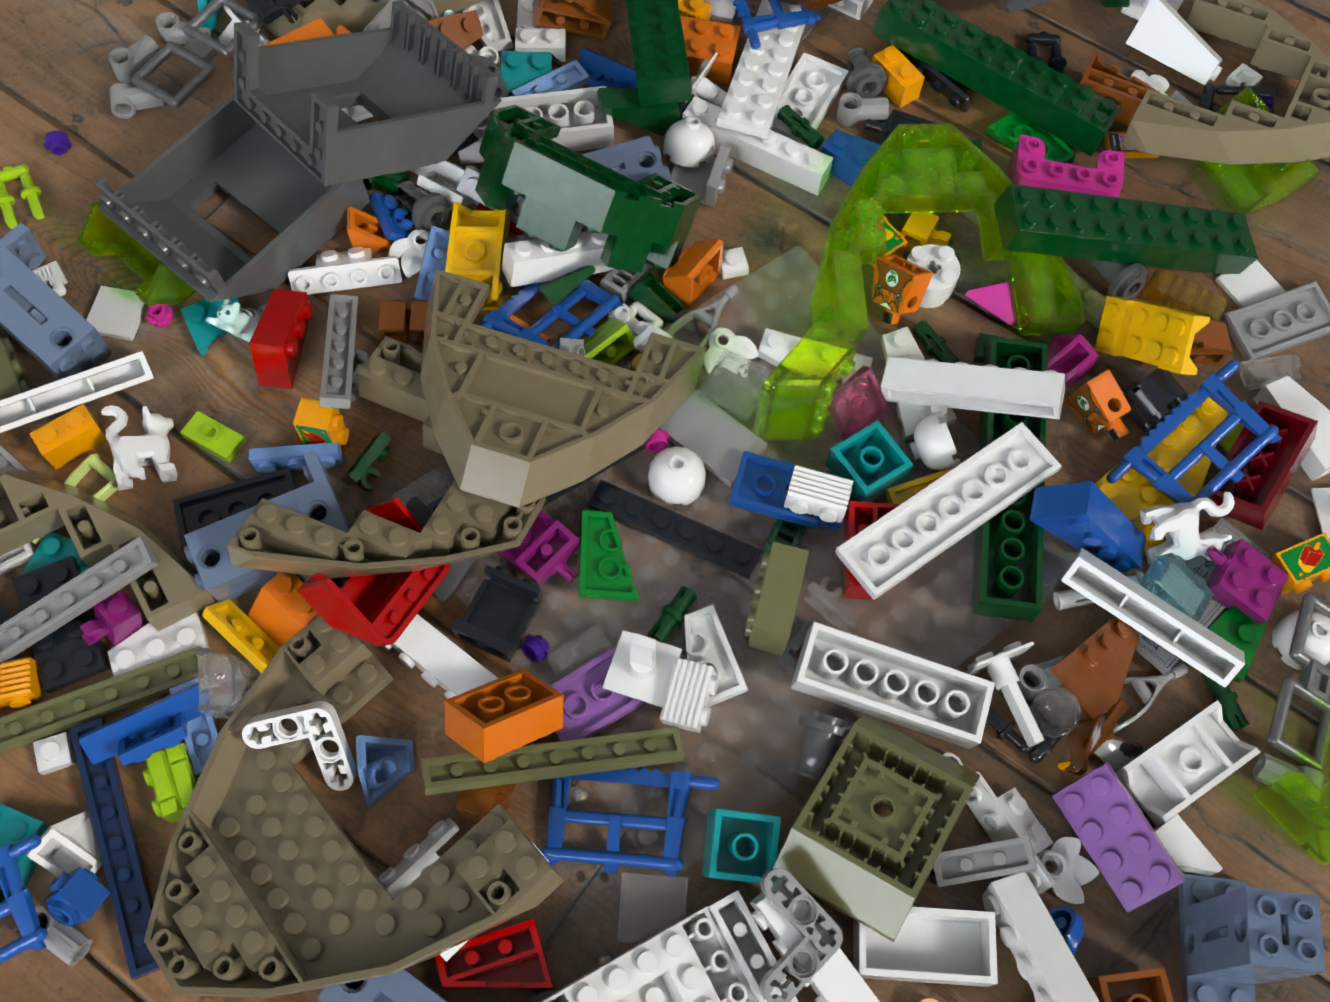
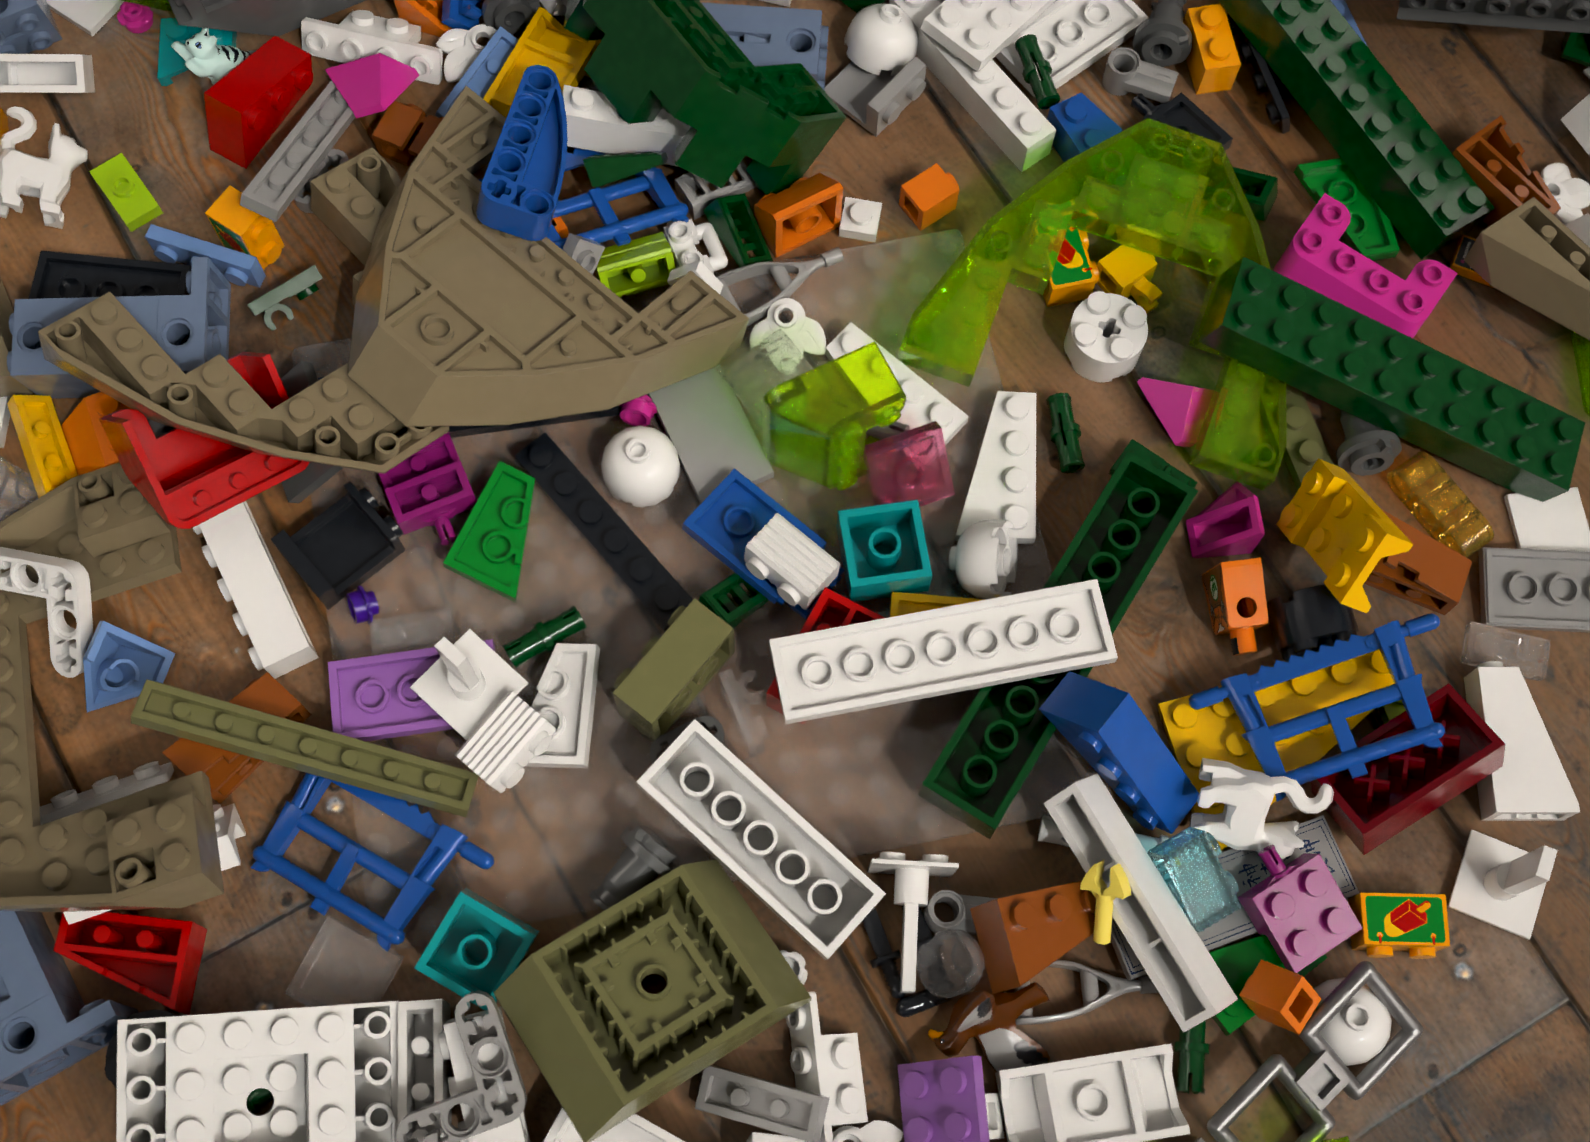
camera: 25 degrees right, 5 degrees up
(359, 295) = (371, 82): none -> dark pink slope
(503, 715) = (270, 669): orange brick -> none
(510, 299) = (528, 160): none -> blue beam
(770, 231) = (929, 196): none -> orange brick
(898, 286) = (1048, 334): orange torso -> none
(974, 387) = (1064, 508): white brick -> none
(1057, 62) = (1450, 109): black piece -> none
(1134, 624) = (1118, 888): none -> light yellow bar
(1268, 638) = (1280, 996): none -> orange brick

